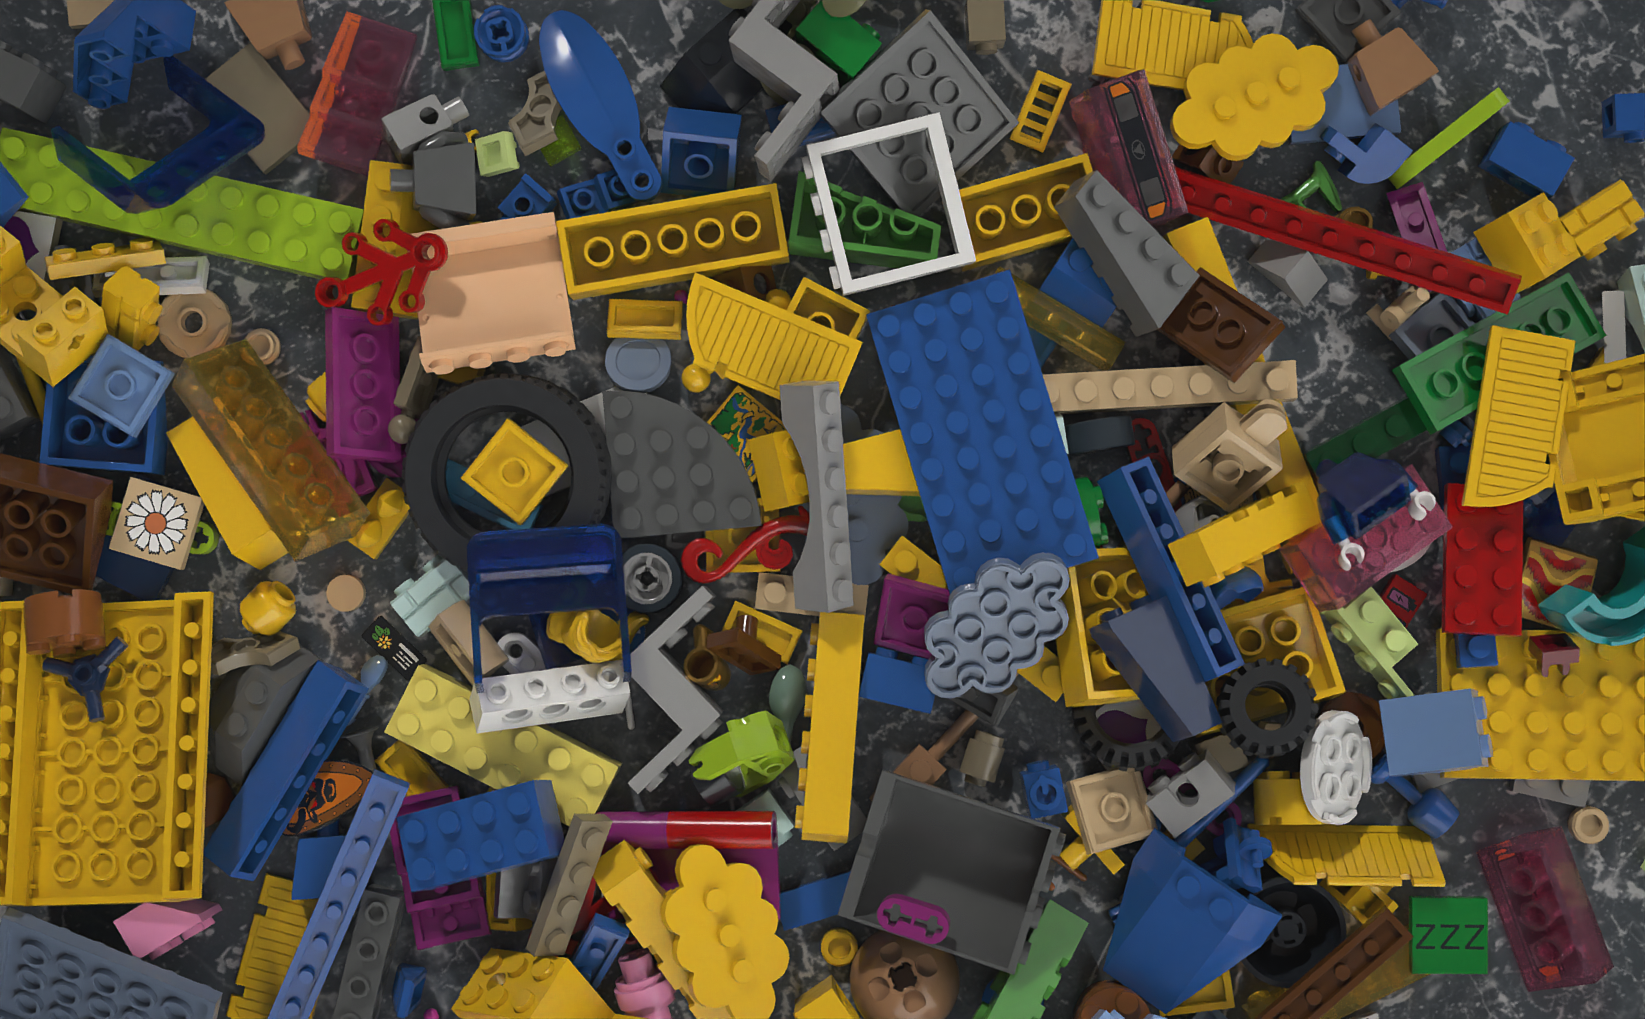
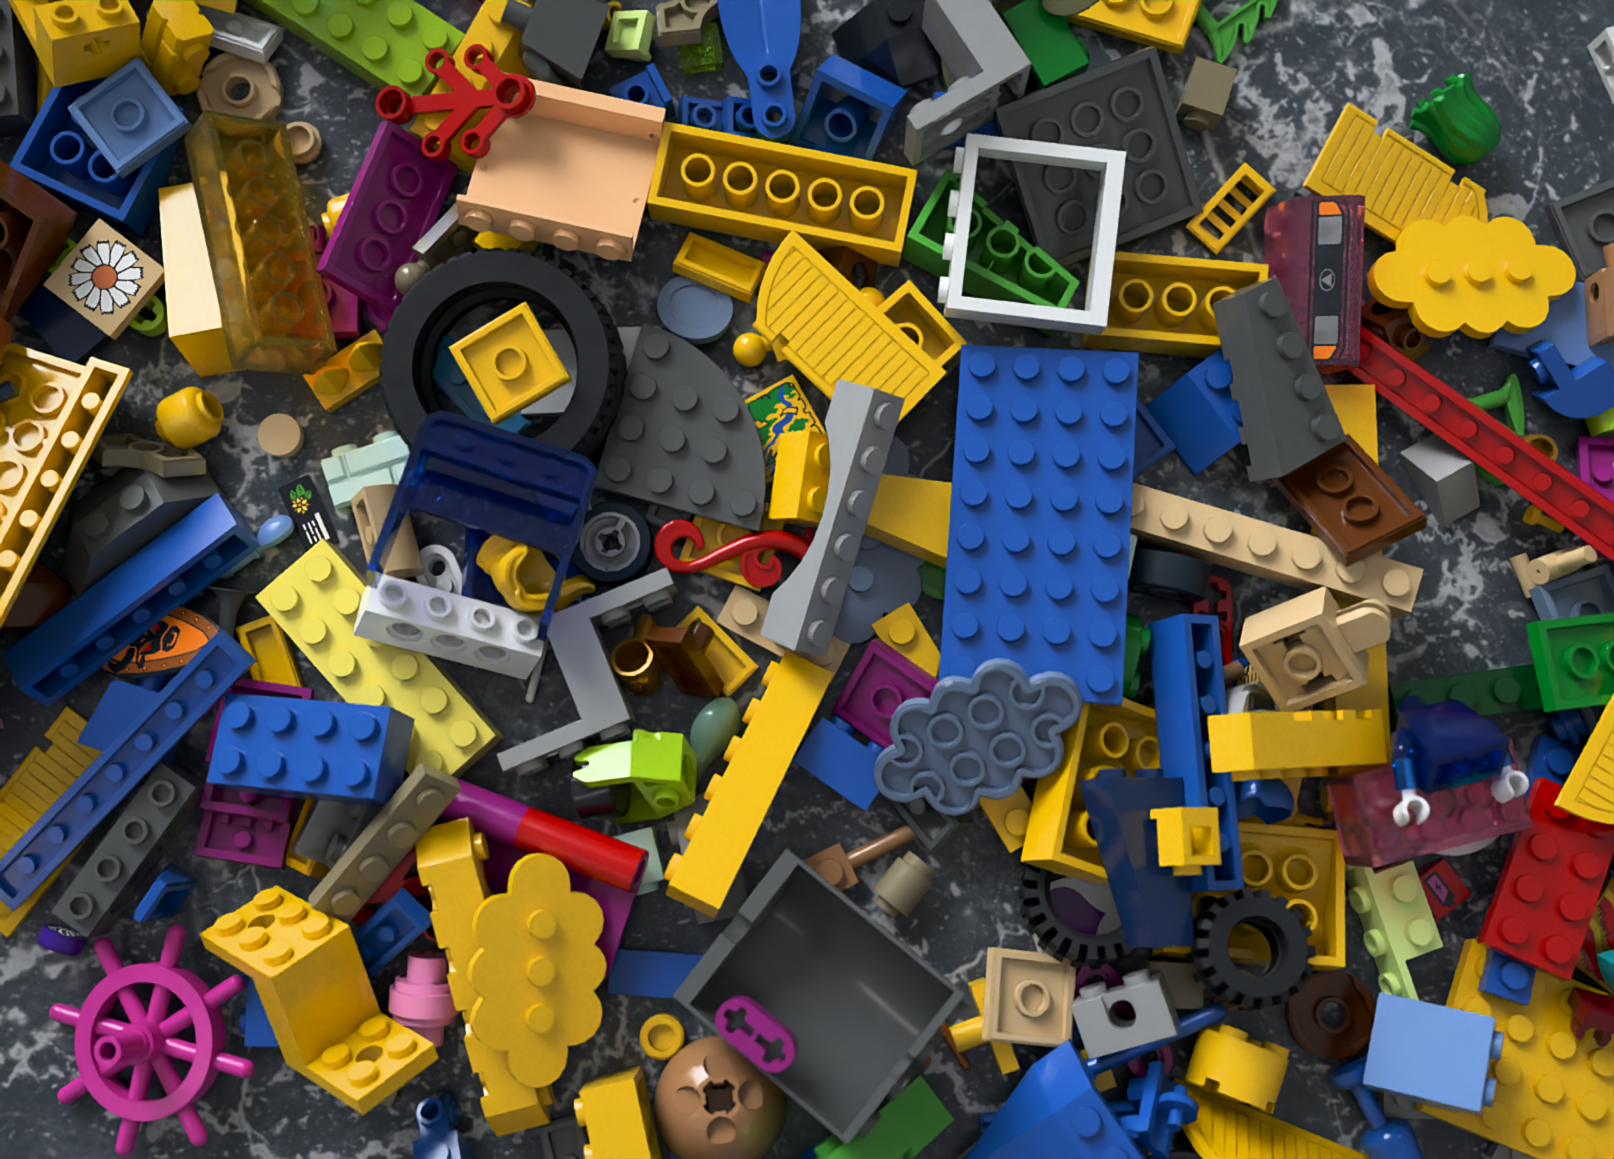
camera: 20 degrees right, 5 degrees down
(1043, 789) = (959, 946): blue brick -> none
(1067, 326) = (1177, 447): clear yellow tile -> none
(1186, 644) = (1188, 838): none -> yellow brick
(1335, 767) = (1302, 1050): white tile -> none

